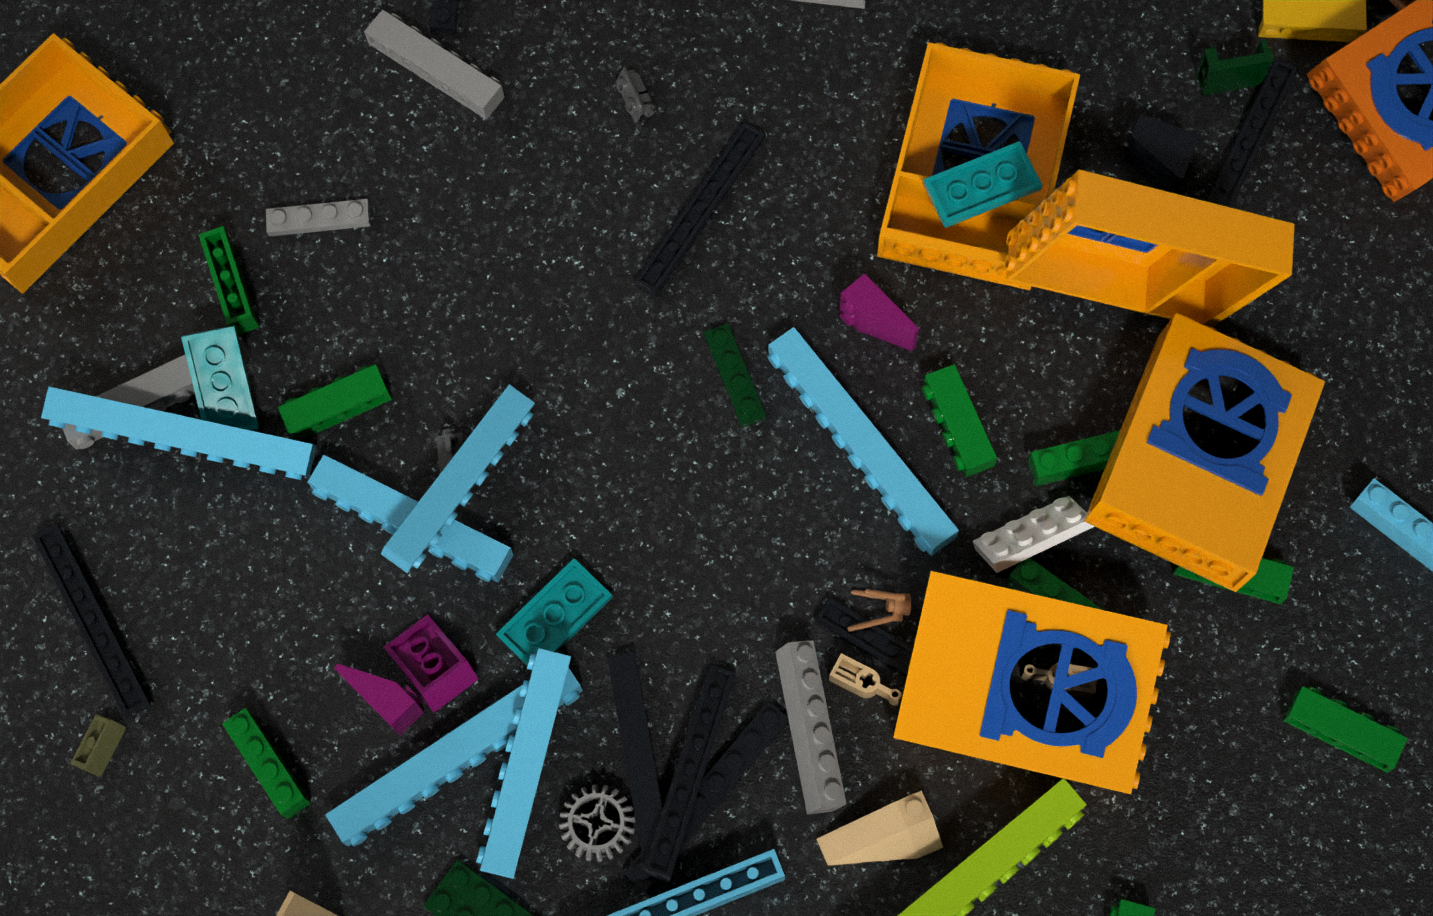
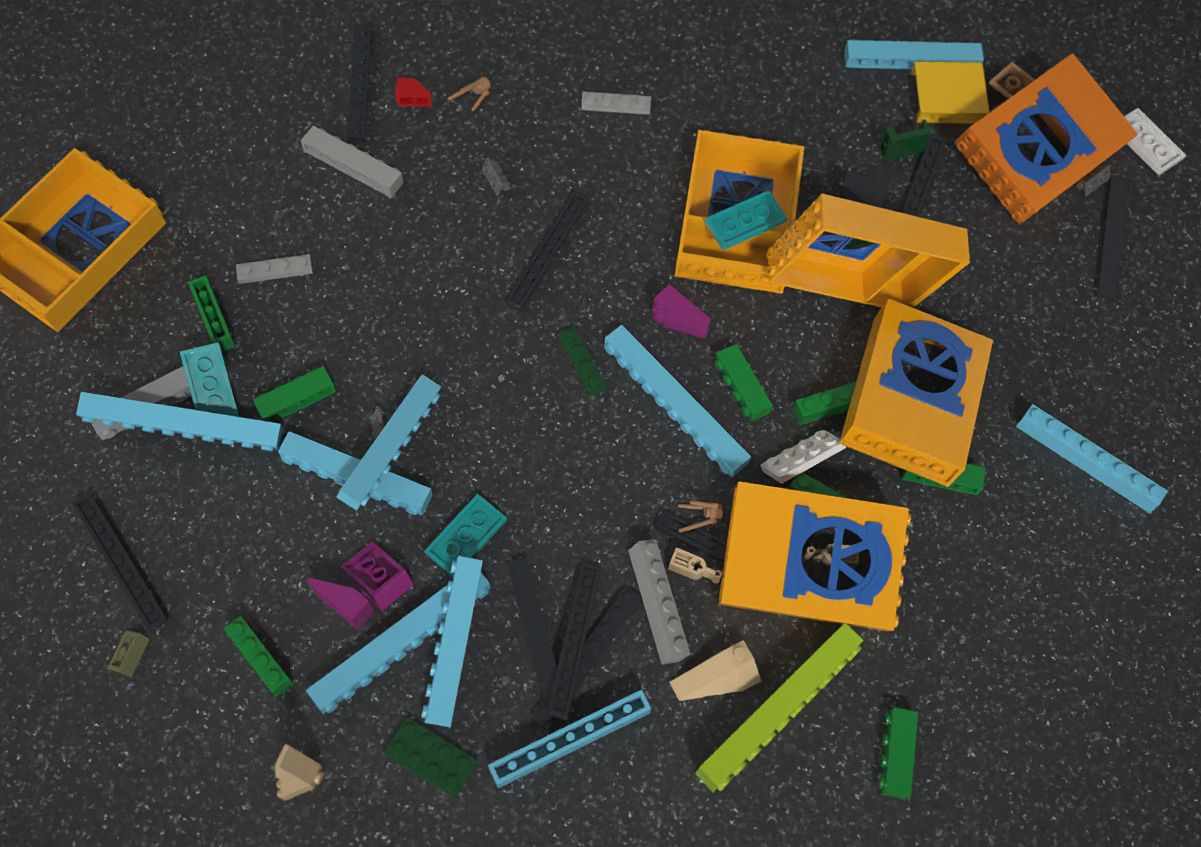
camera: 15 degrees left, 5 degrees down
(600, 809) = (499, 680): light grey gear -> none
(1345, 729) = (1033, 577): green brick -> none

